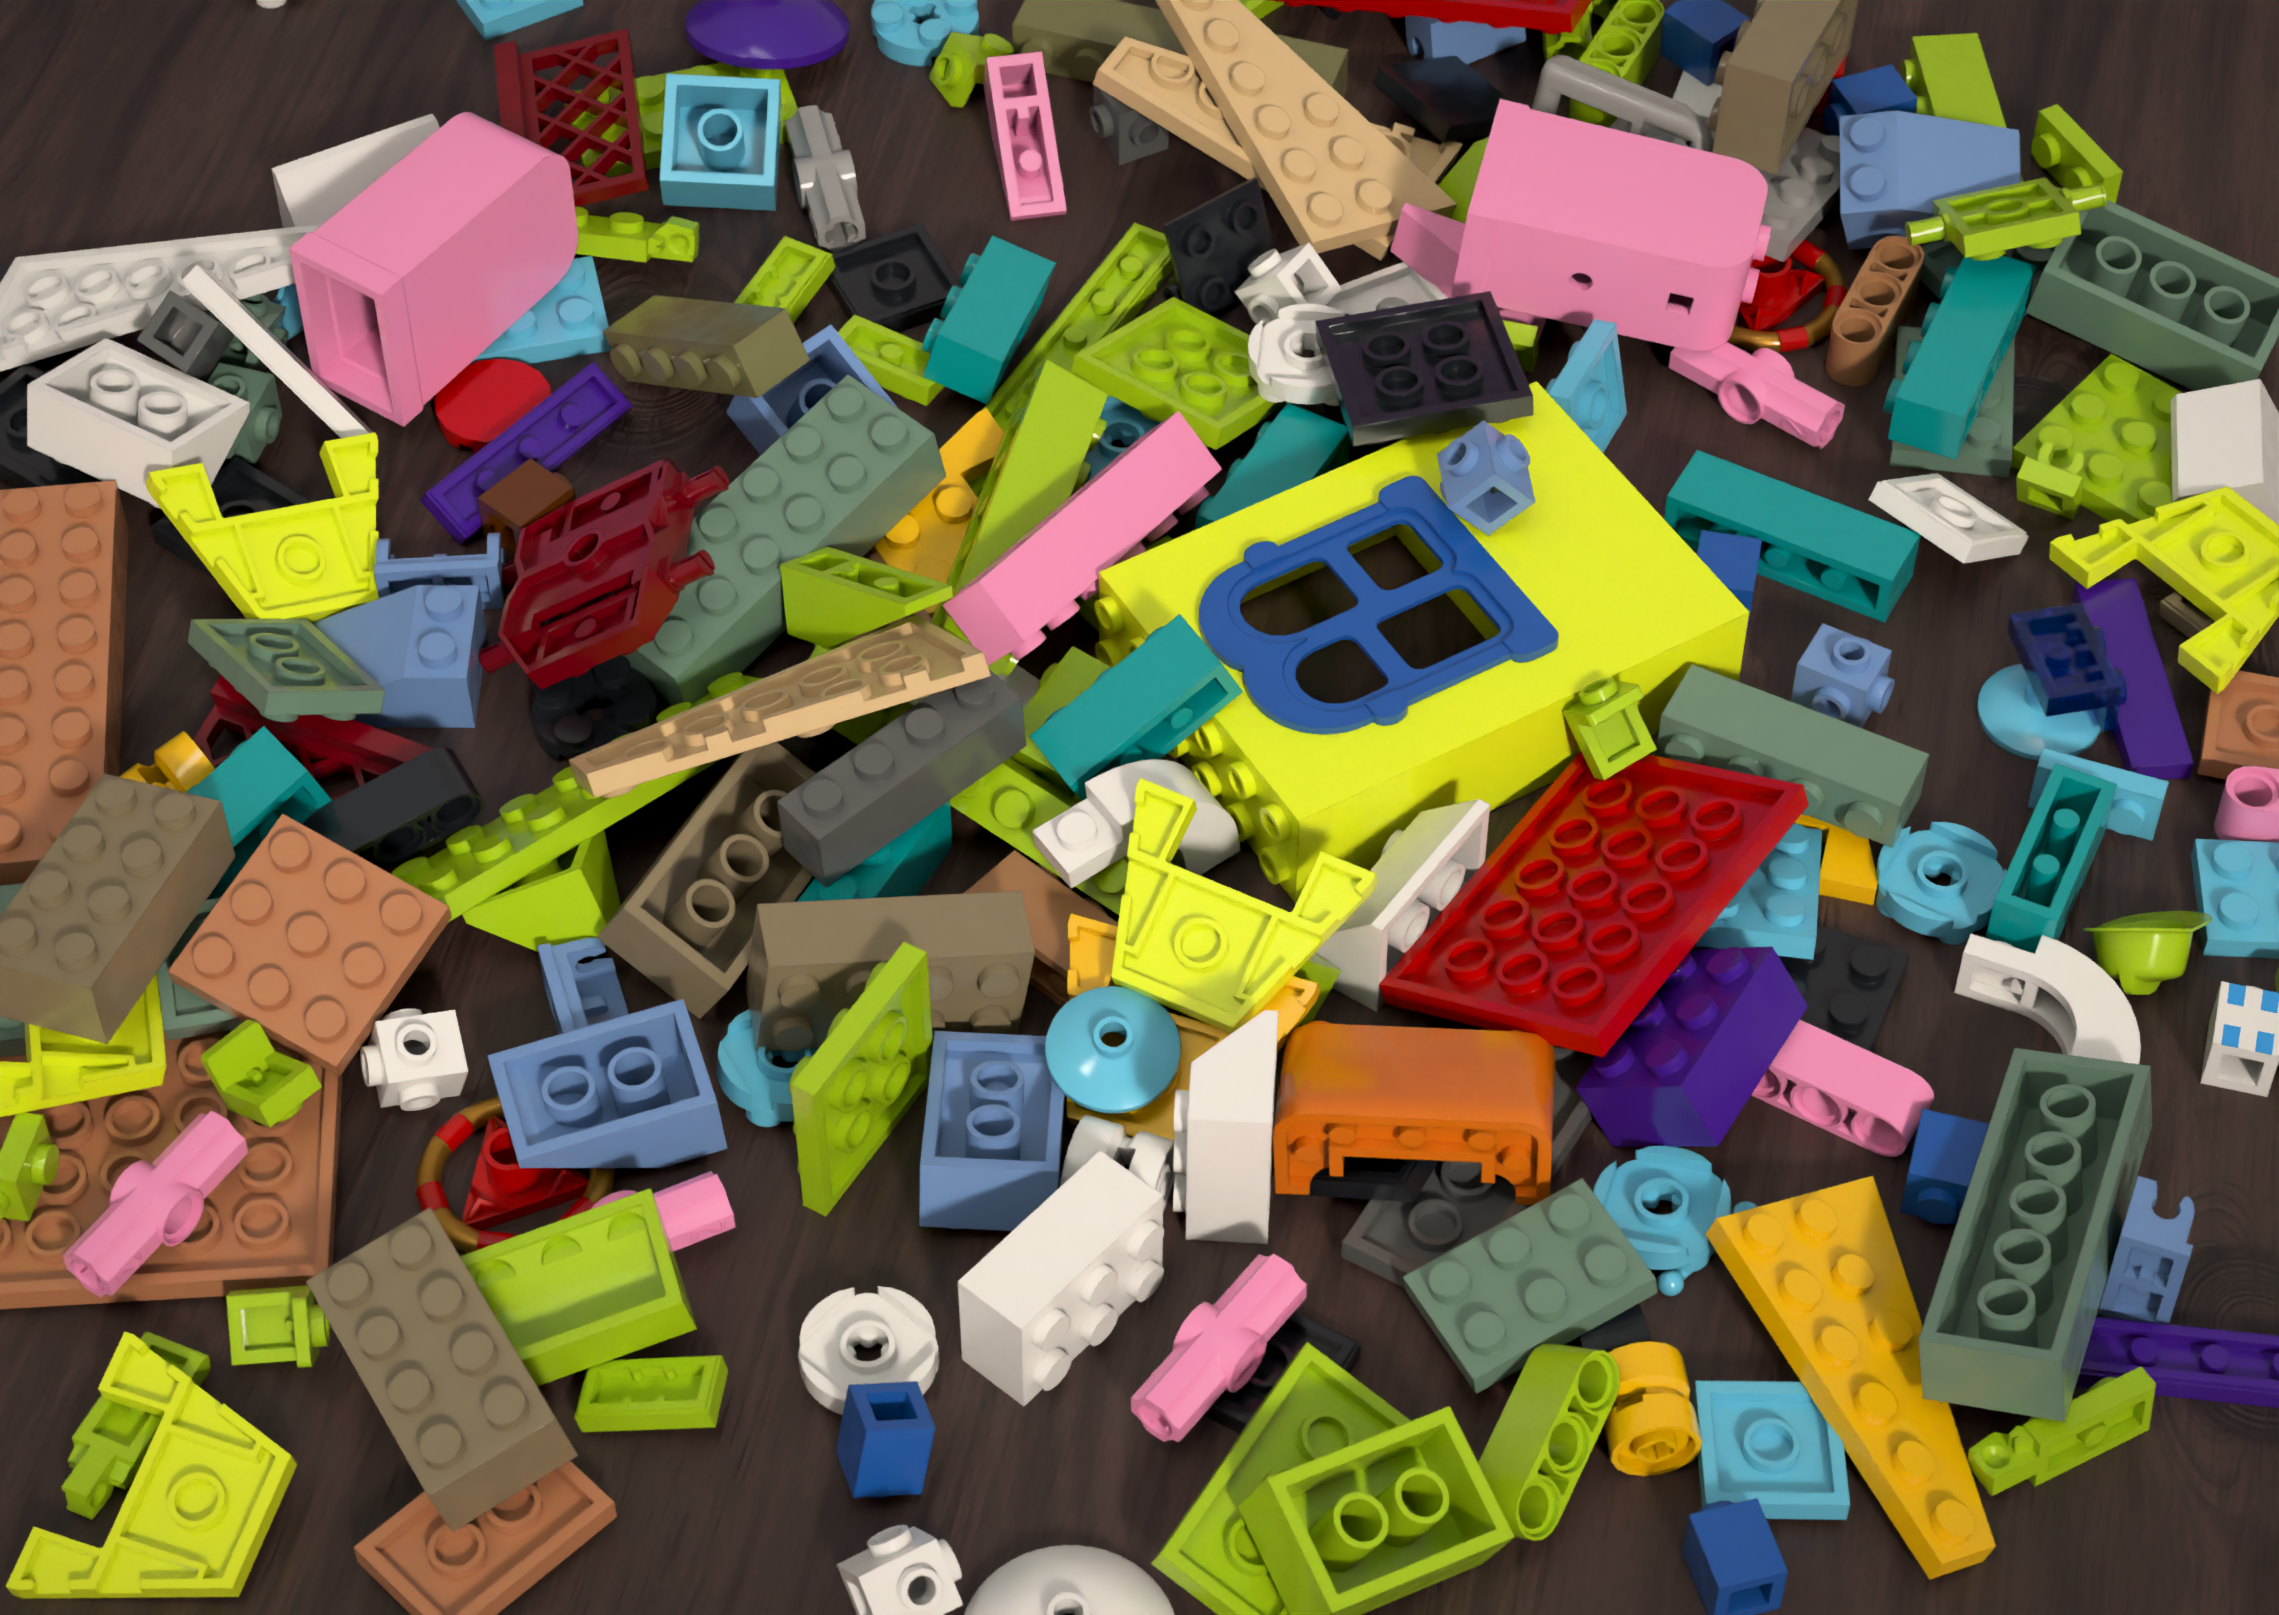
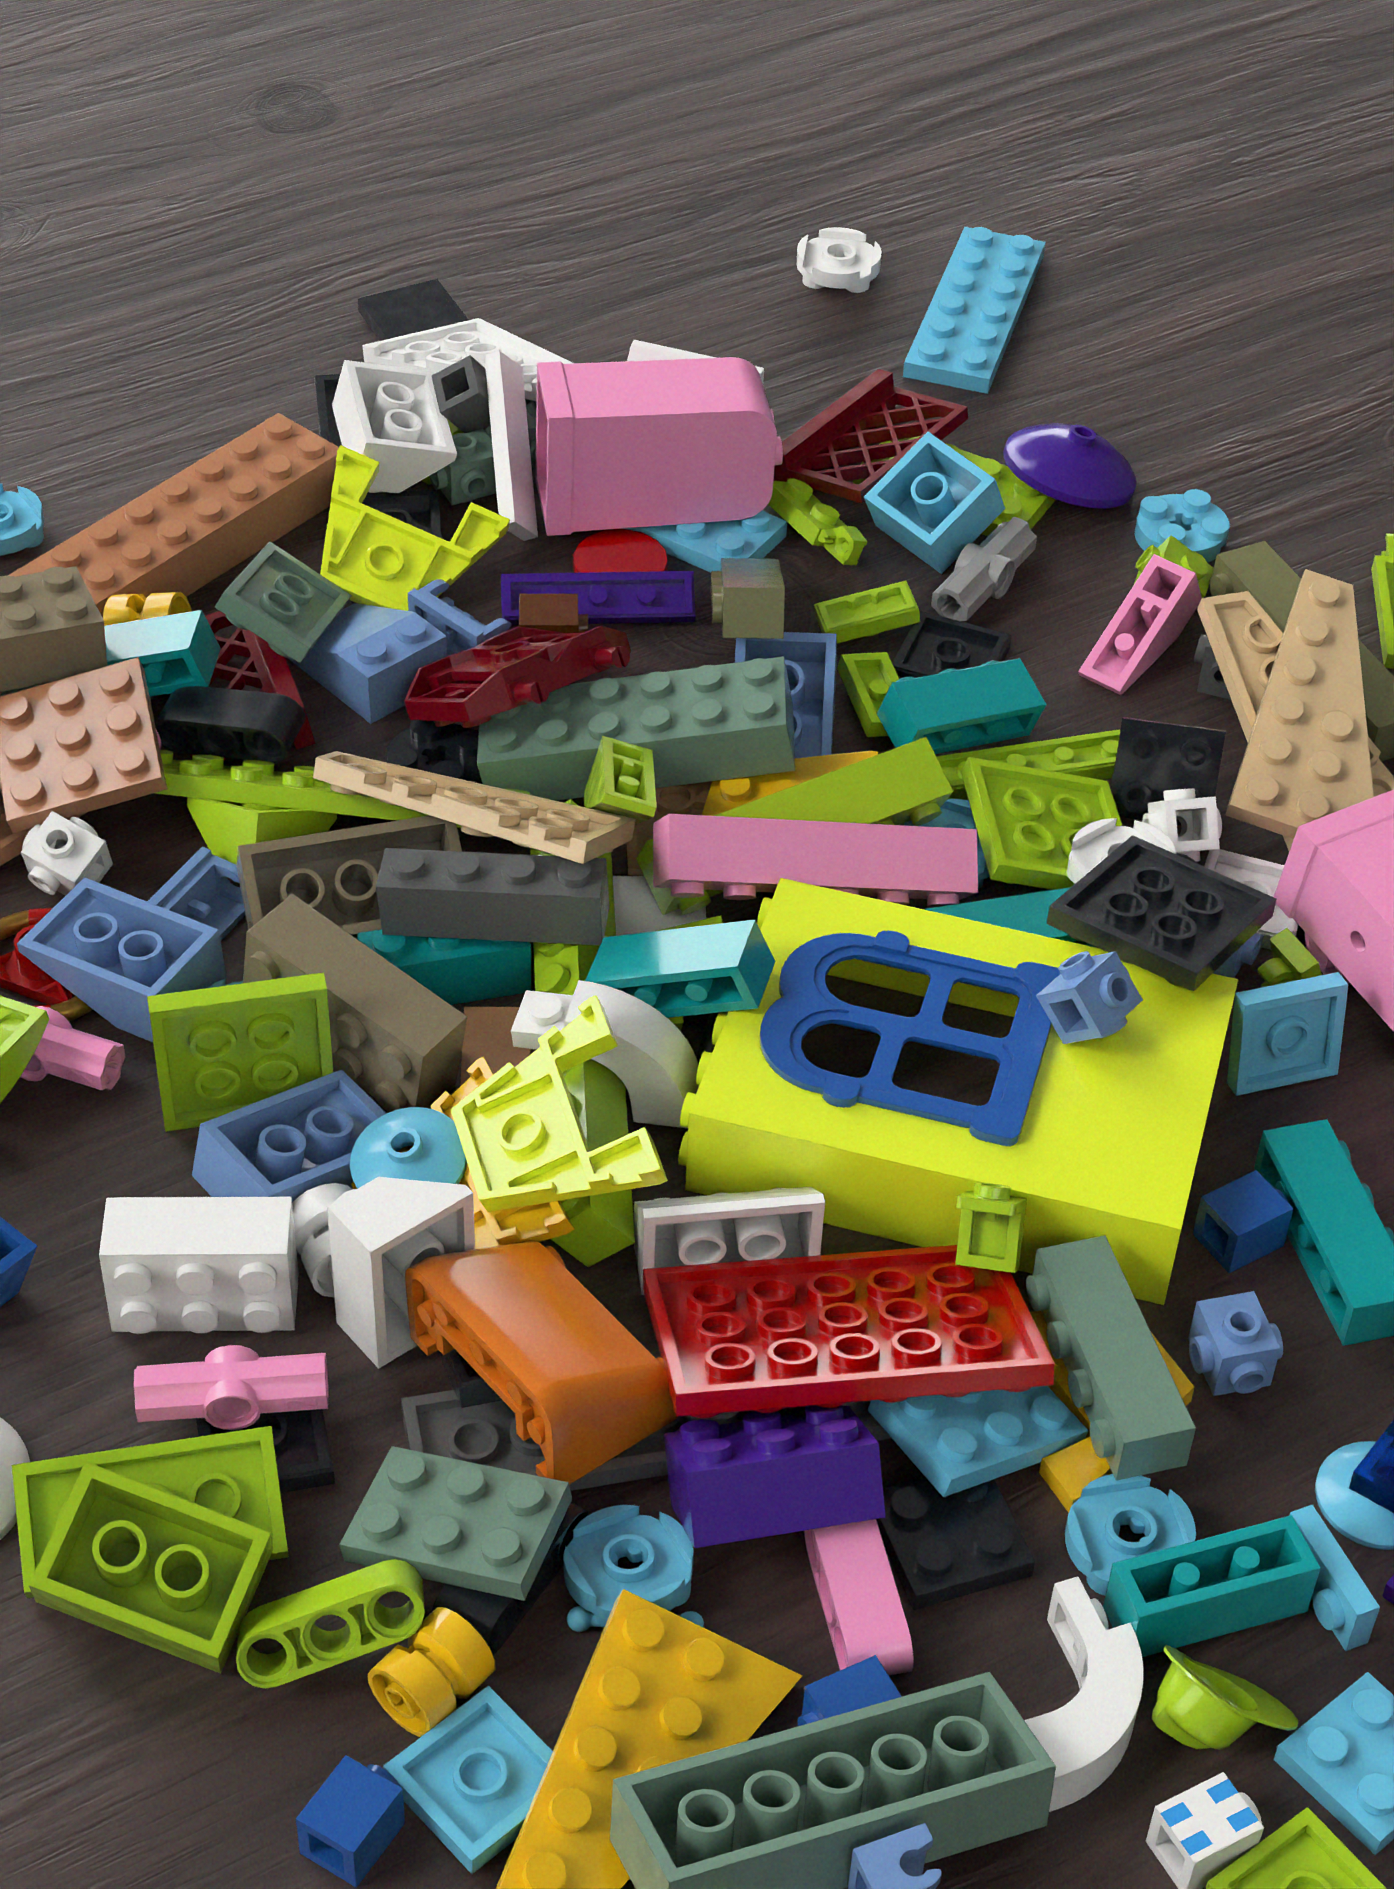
camera: 45 degrees right, 5 degrees down
(849, 1319) = (58, 1191): white plate -> none

